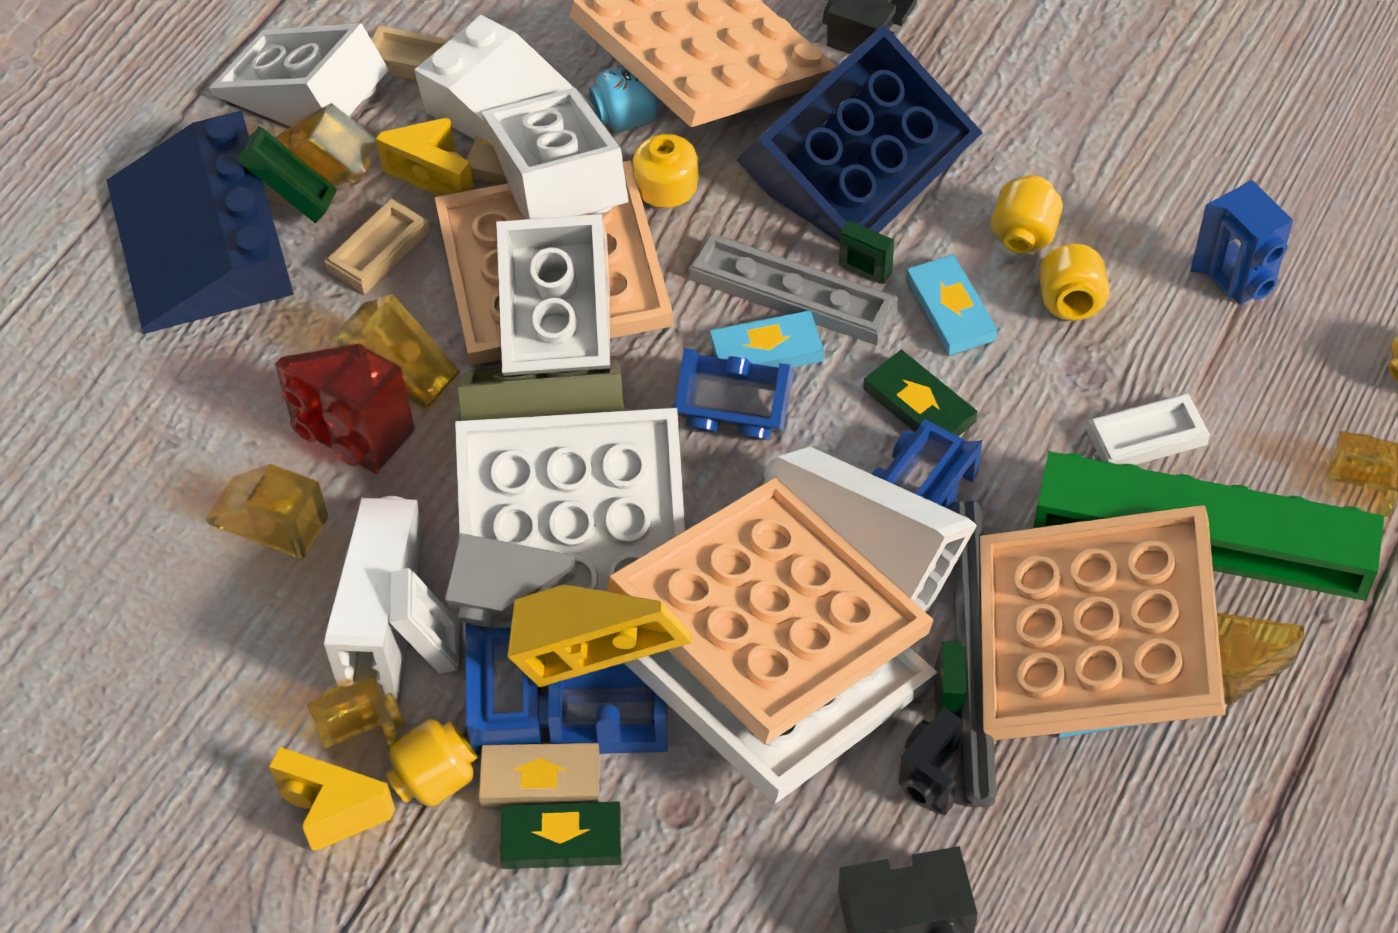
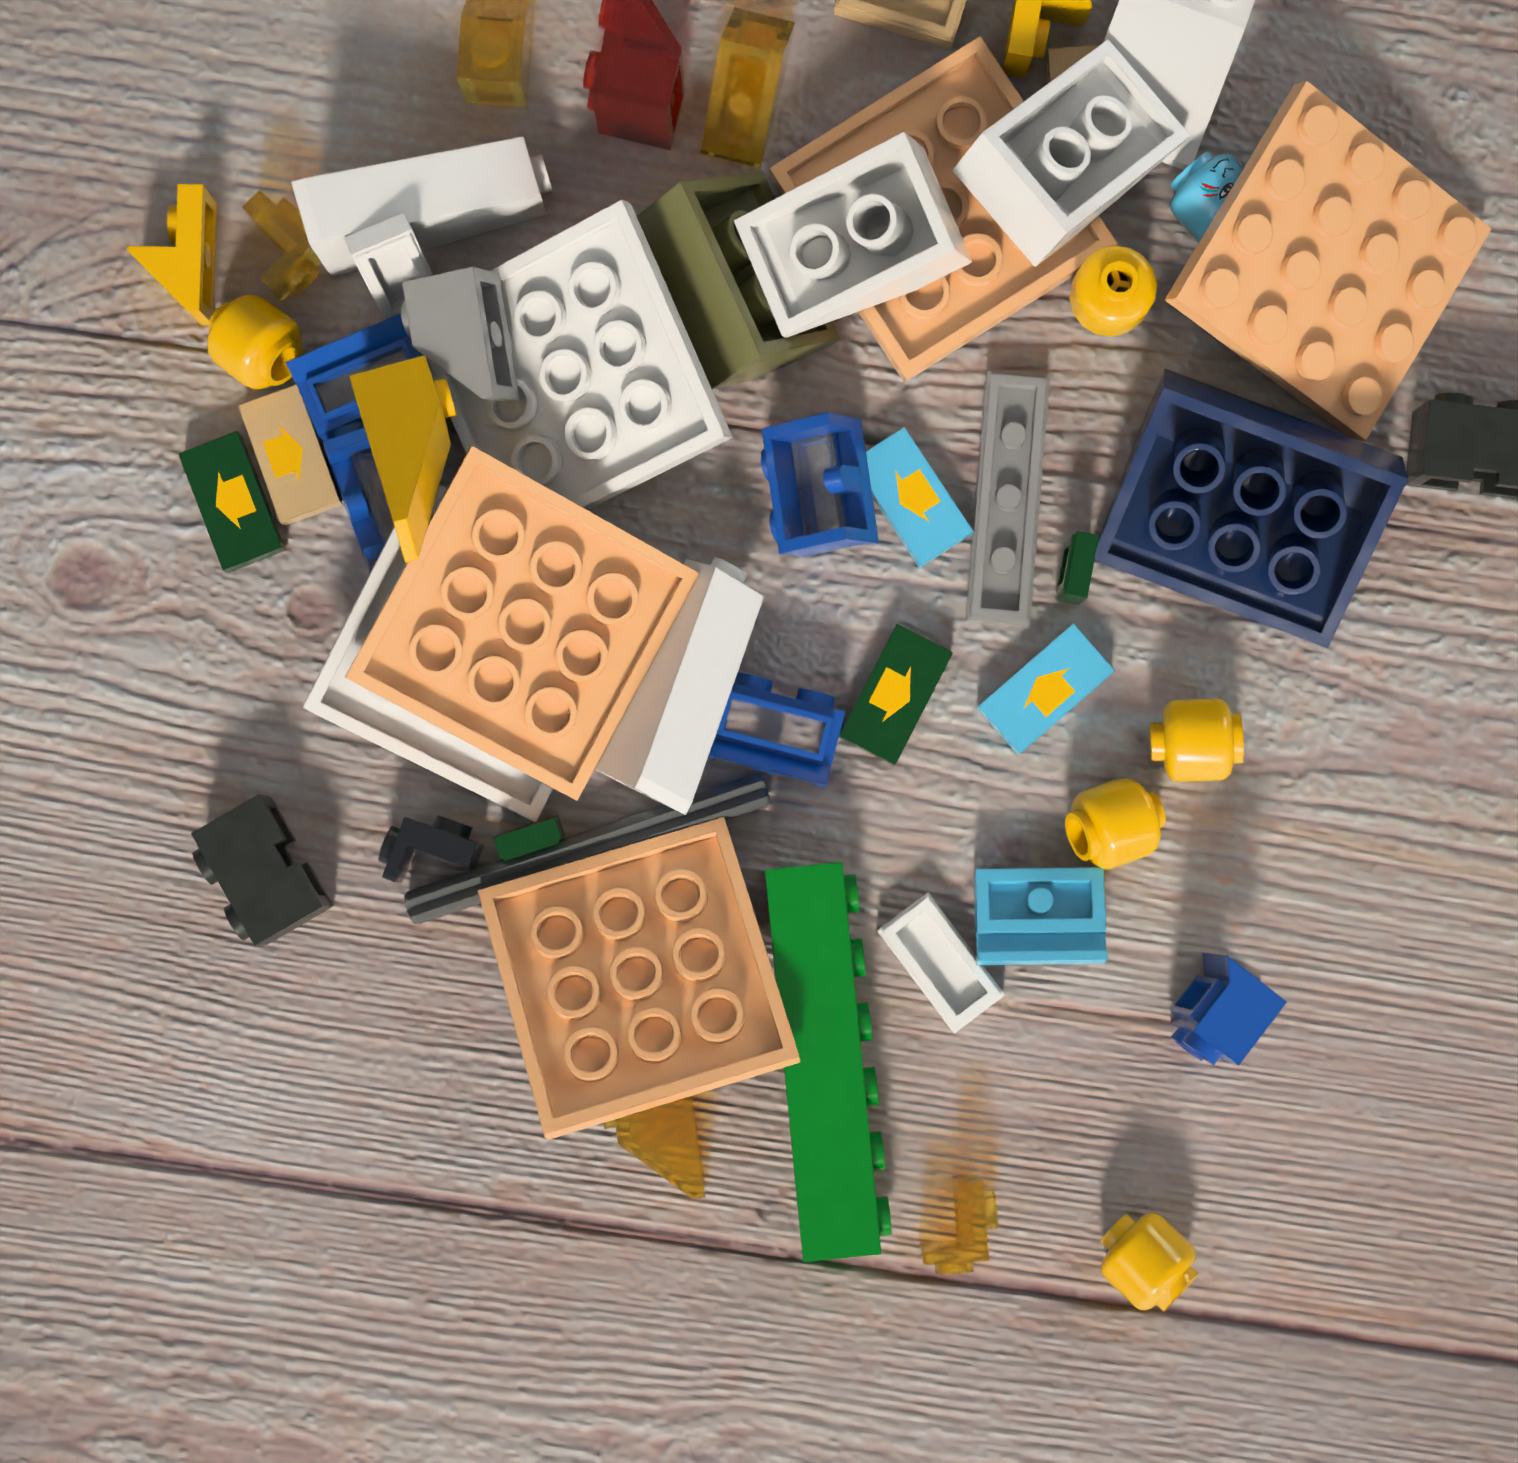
camera: 65 degrees right, 30 degrees up
(1131, 350) = (1040, 916): none -> medium azure plate

